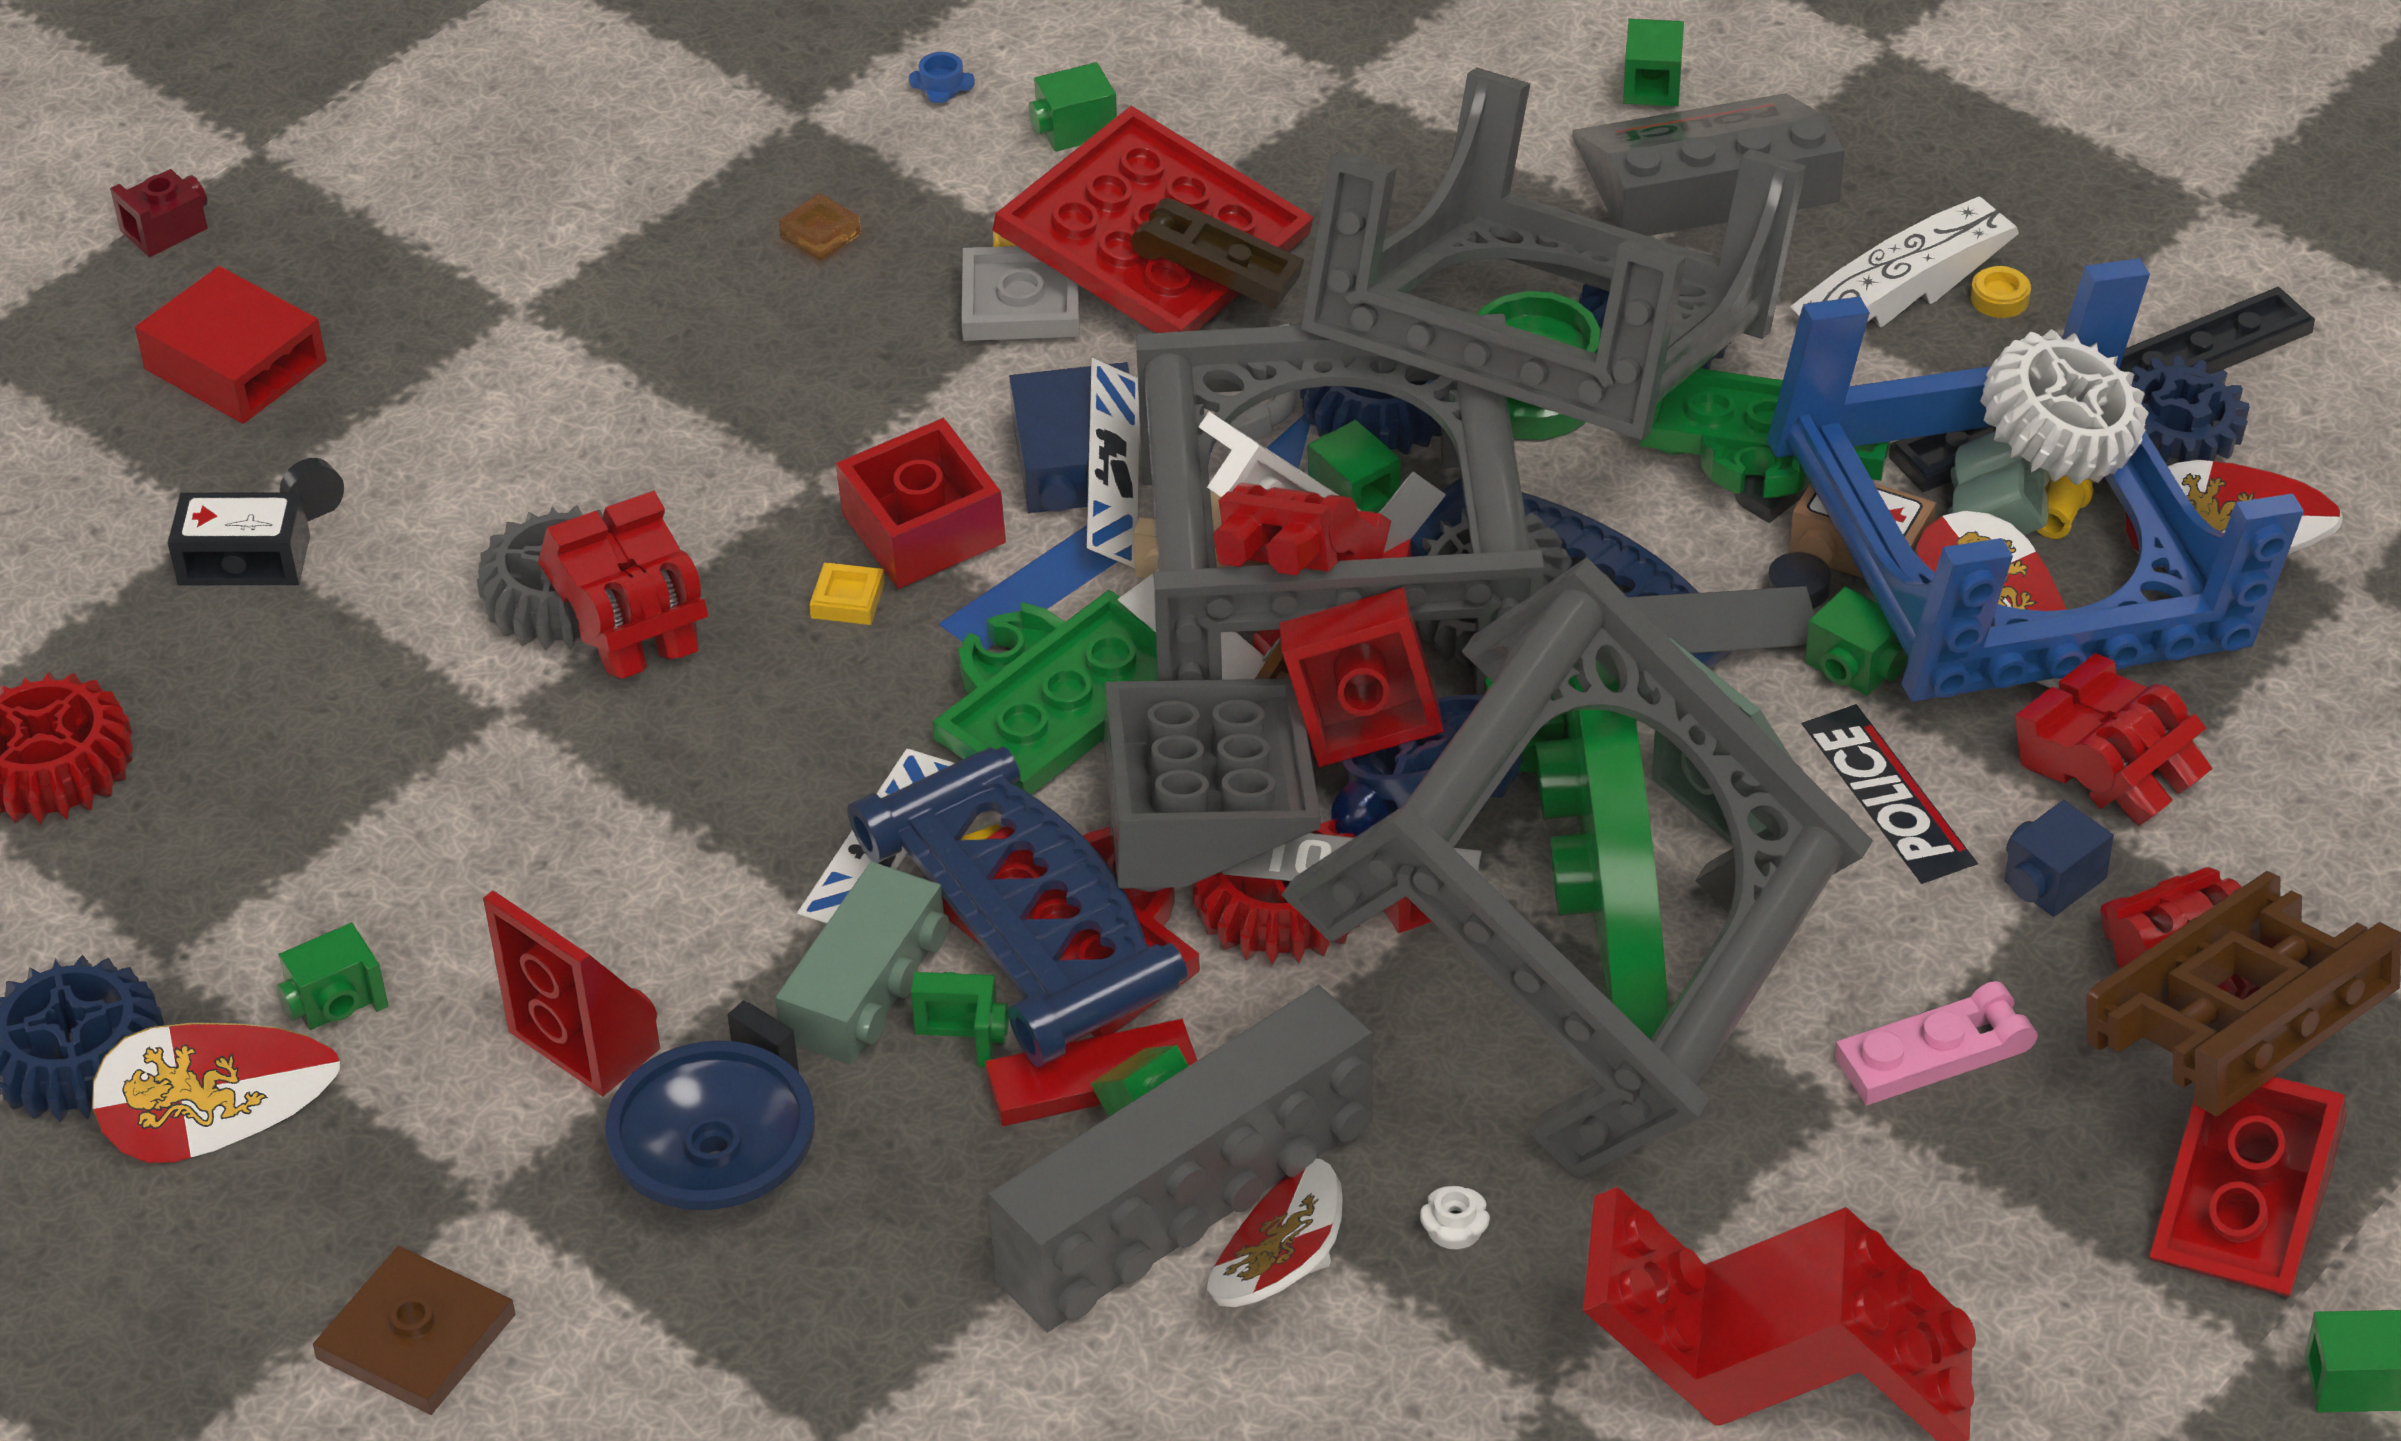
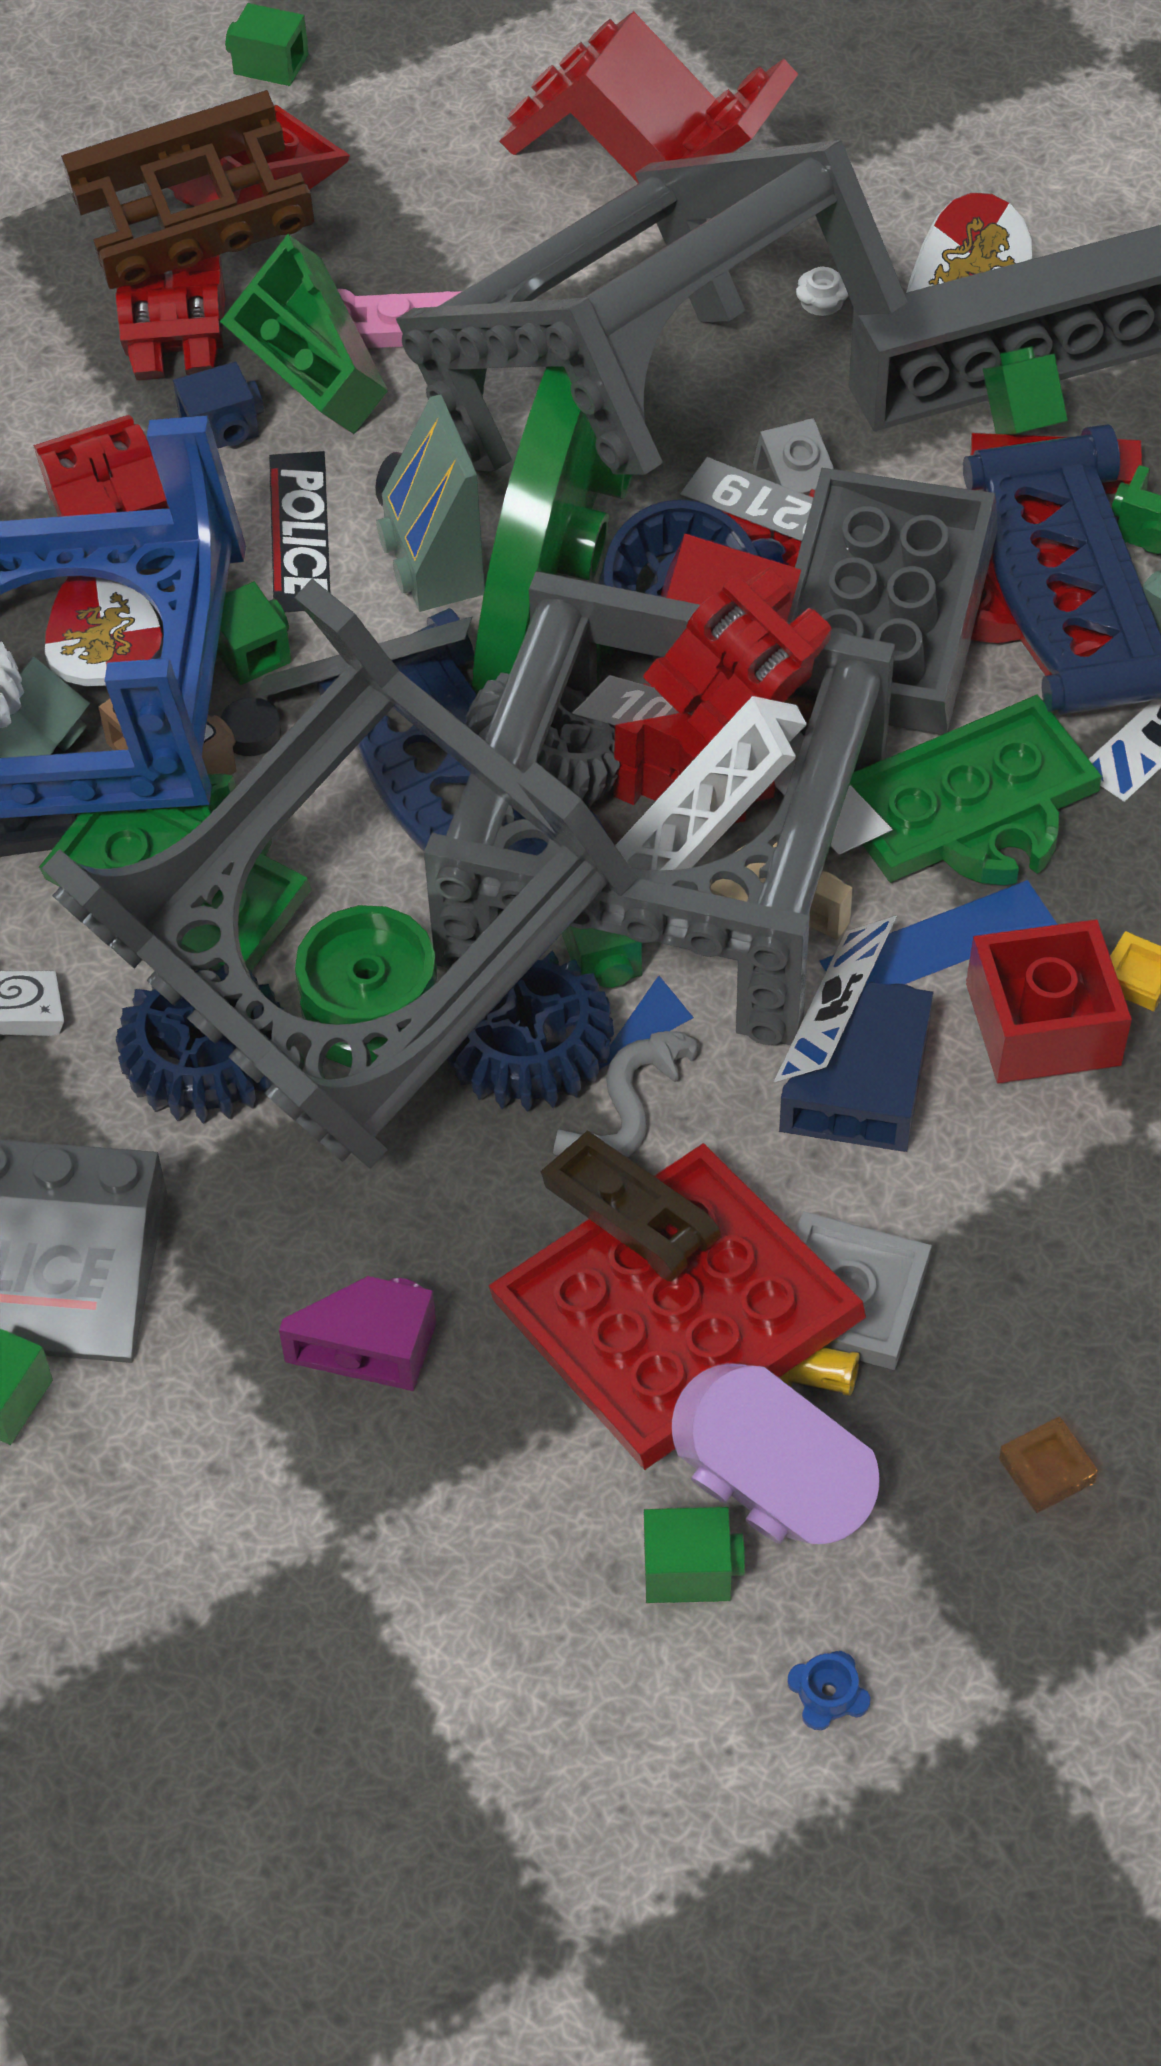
camera: 160 degrees left, 10 degrees up
(1029, 132) = (774, 1455): none -> lavender brick
(1385, 948) = (793, 454): none -> light grey bracket
(1417, 151) = (364, 1332): none -> magenta slope
(1996, 921) = (307, 335): none -> green wedge

